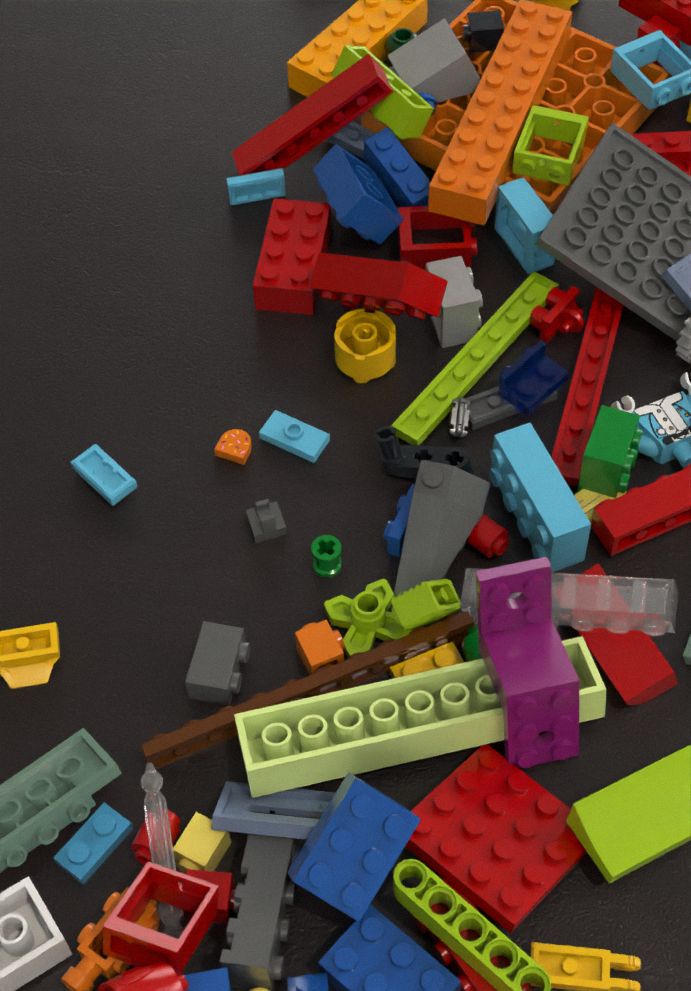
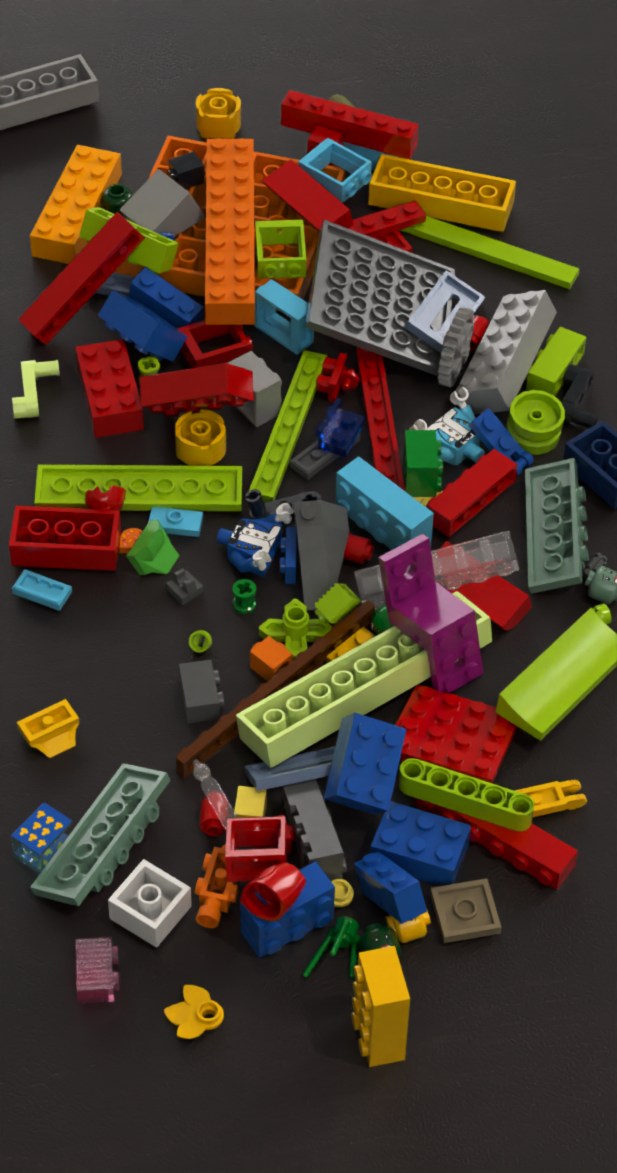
camera: 25 degrees left, 5 degrees down
(93, 843) = (168, 835): dark azure plate -> none
(155, 420) = (65, 538): none -> red brick
(217, 214) = (28, 405): none -> yellowish green beam
(217, 392) = (111, 500): none -> red hair
(246, 593) = (195, 640): none -> lime hinge
(249, 465) = (153, 551): none -> bright green slope
(256, 186) = (50, 342): medium azure plate -> none
(272, 383) = (145, 486): none -> lime plate
(346, 243) = (145, 366): none -> lime bush
(369, 491) = (255, 541): none -> torso
(459, 417) = (296, 472): dark grey piece -> none
(608, 92) = (307, 196): none -> red brick

